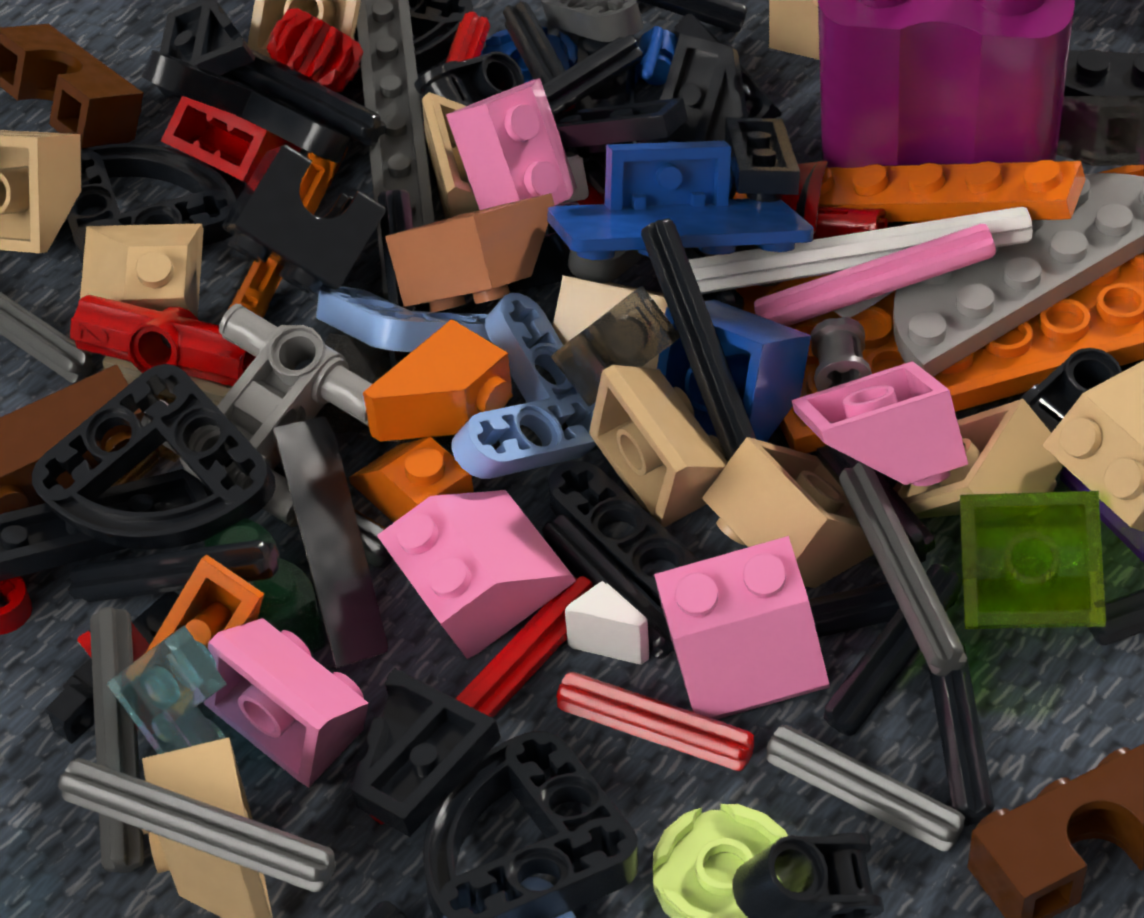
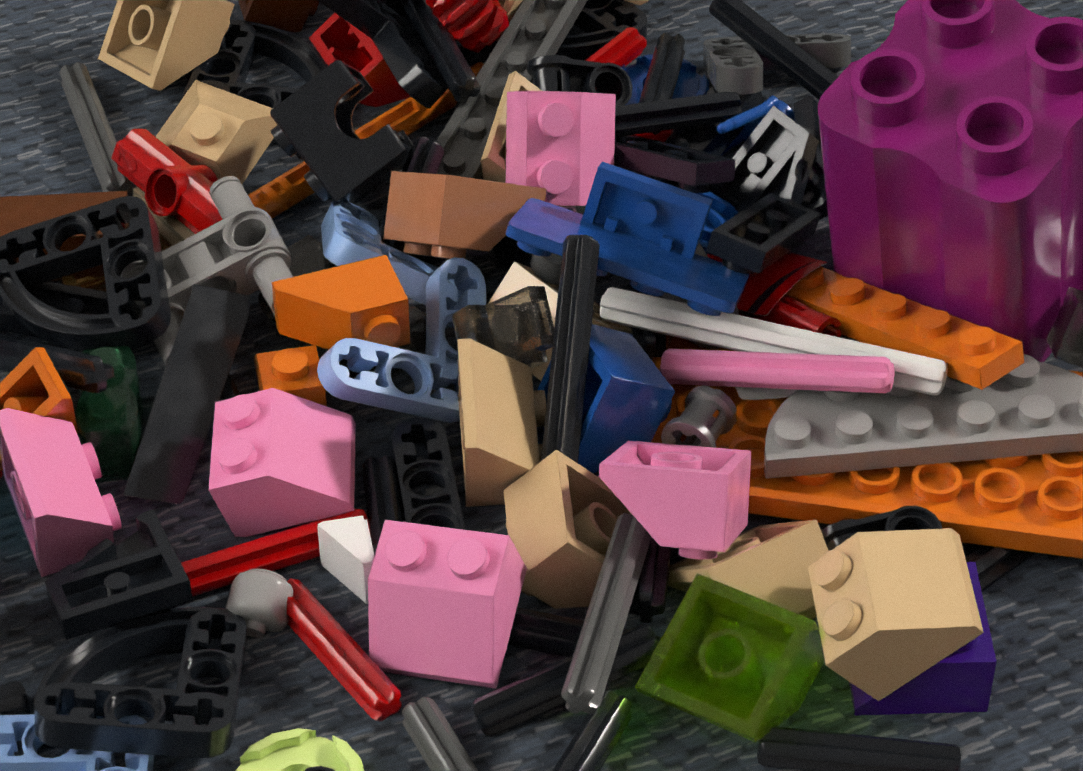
camera: 25 degrees right, 5 degrees down
(551, 706) = (260, 600): none -> light grey piece

